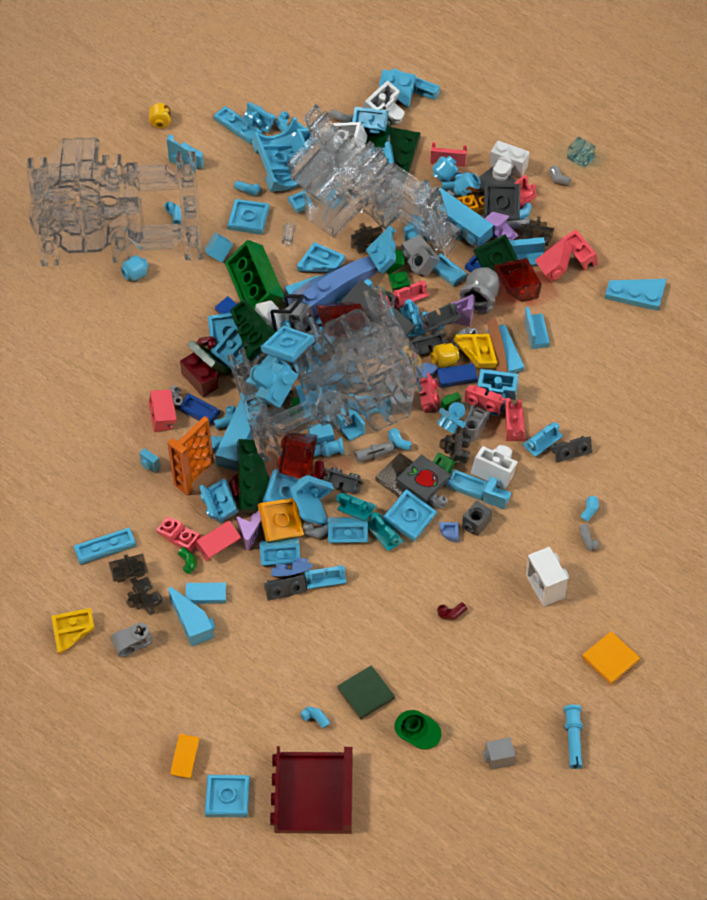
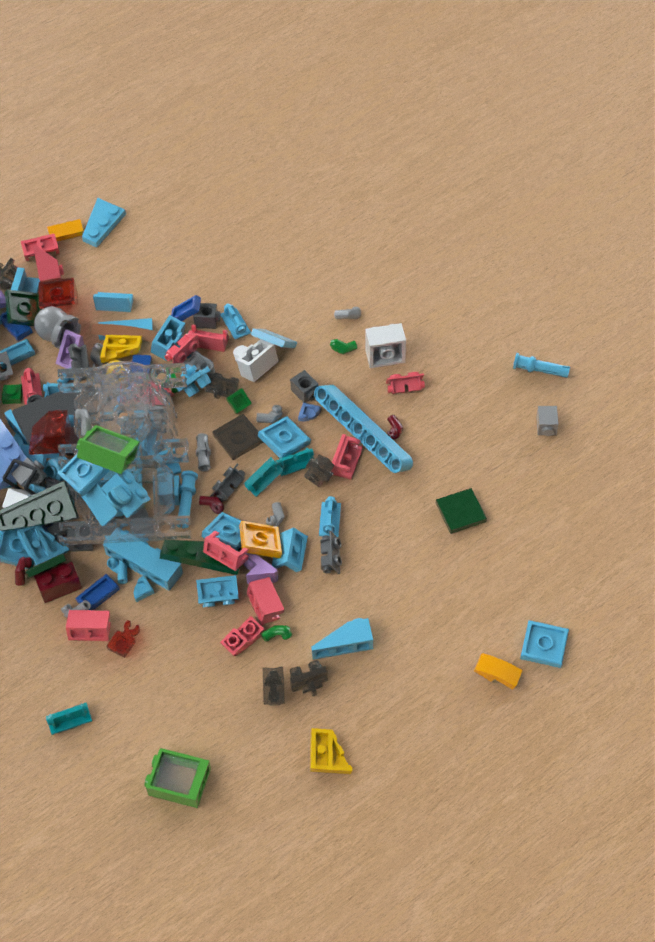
camera: 75 degrees left, 0 degrees up
(25, 517) = (177, 777): none -> window
(69, 421) = (69, 718): none -> teal hinge
(104, 546) = (235, 708): medium azure tile -> none
(129, 639) = (357, 699): light grey piece -> none
(149, 460) = (148, 646): medium azure plate -> none
(152, 440) = (123, 641): none -> clear red plate
(189, 459) = (174, 594): orange fence -> none
(206, 592) = (318, 623): medium azure tile -> none
(233, 484) = (197, 573): dark red arm -> none
(254, 490) = (223, 552): none -> coral hinge
(297, 454) = (198, 504): clear red slope -> none
(297, 566) = (316, 540): medium blue slope -> none
(306, 350) = (107, 449): none -> bright green window
(307, 495) = (244, 514): medium azure bracket -> none
(312, 792) = (555, 569): dark red panel -> none
(315, 713) = (476, 552): medium azure arm -> none
(338, 323) = (86, 420): none -> light grey arm
(347, 530) = (284, 490): medium azure panel -> none
(378, 556) = (319, 470): none -> clear smoke brick
(395, 437) = (192, 432): medium azure arm -> none
(401, 574) = (346, 457): none -> coral hinge
(418, 729) = (510, 475): green piece -> none
(423, 478) = (250, 416): dark grey tile -> none
(437, 580) = (363, 428): none -> medium azure beam
(466, 484) = (263, 388): medium azure tile -> none
(494, 495) = (283, 369): medium azure panel -> none
(516, 615) = (412, 380): none -> coral hinge
(526, 475) = (273, 338): none -> medium azure tile
(538, 390) = (187, 308): none -> blue tile
(538, 405) = (207, 316): none -> dark grey brick
(541, 539) = (342, 347): none -> green arm
(572, 449) = (251, 306): dark grey hinge -> none
(592, 506) = (318, 302): medium azure arm -> none
(610, 658) = (469, 325): light orange tile -> none
(614, 265) = (66, 230): none -> light orange tile

